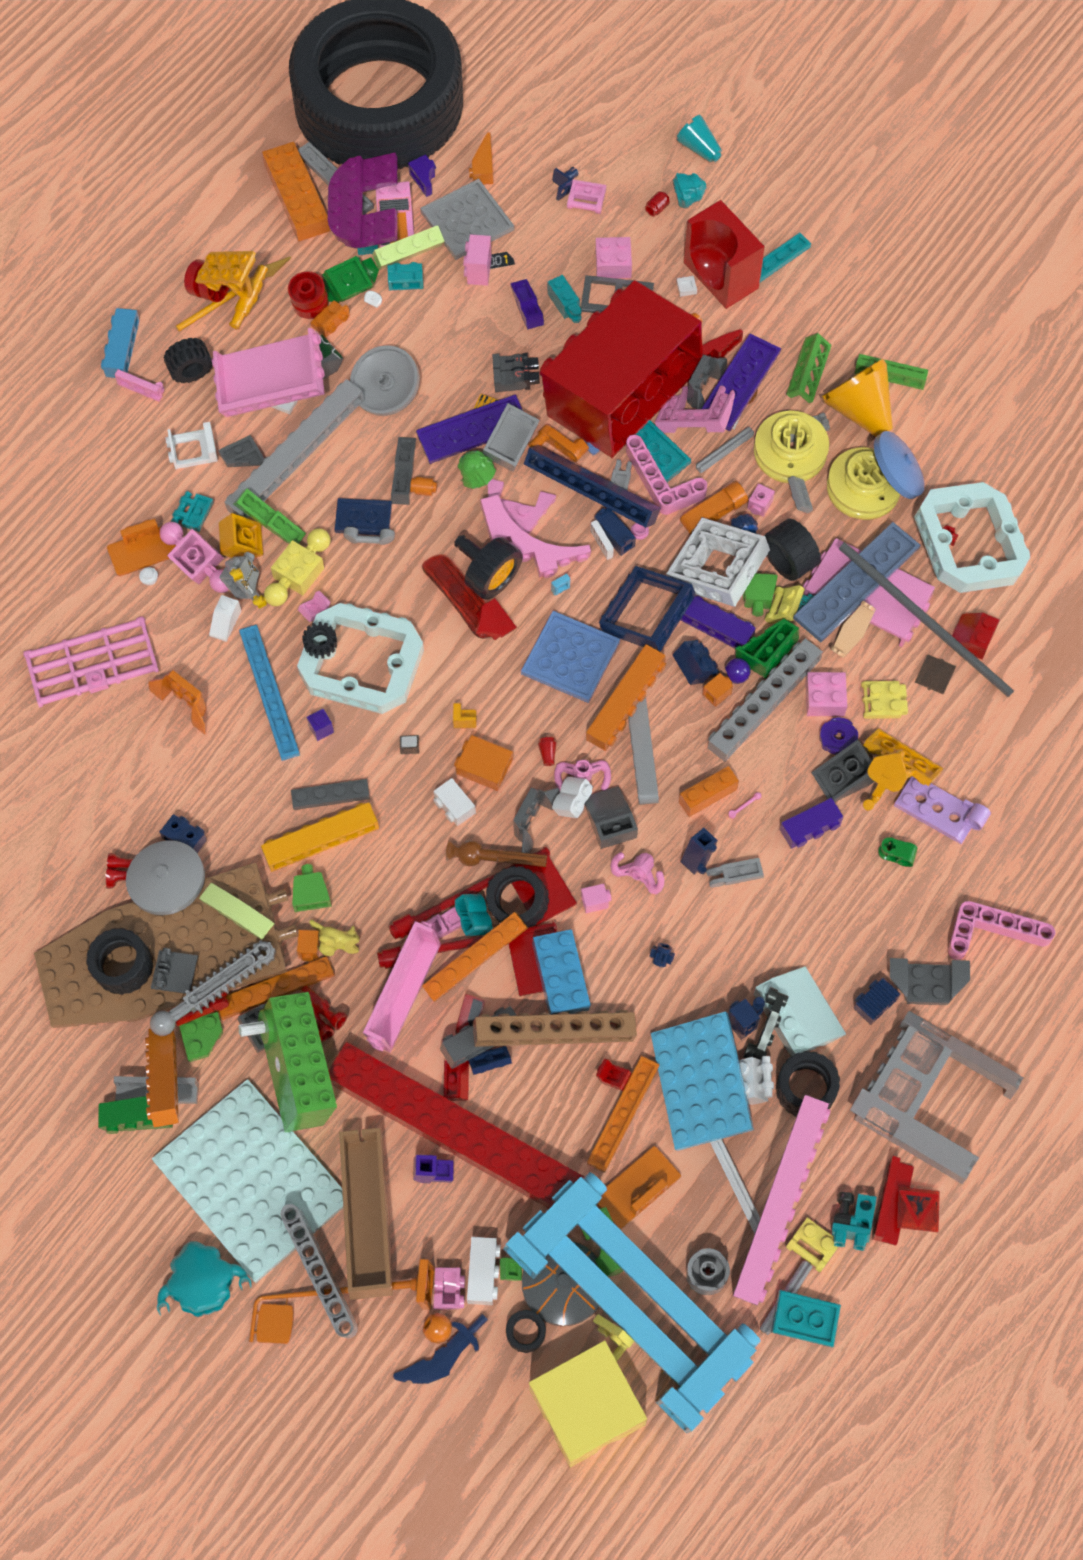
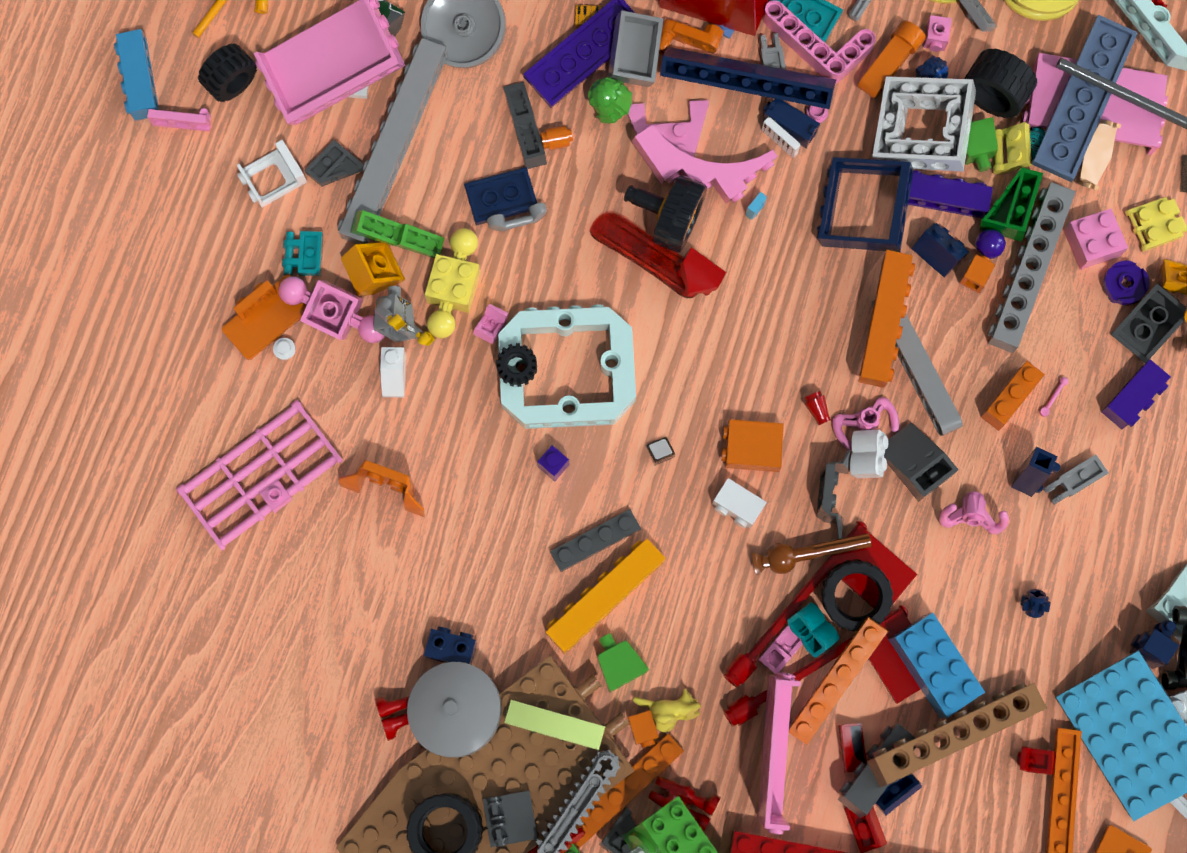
camera: 20 degrees left, 10 degrees up
(269, 693) = (478, 442): dark azure tile -> none
(463, 718) = (709, 398): light orange panel -> none
(570, 656) = (799, 287): medium blue plate -> none
(595, 898) = (937, 562): bright pink brick -> none

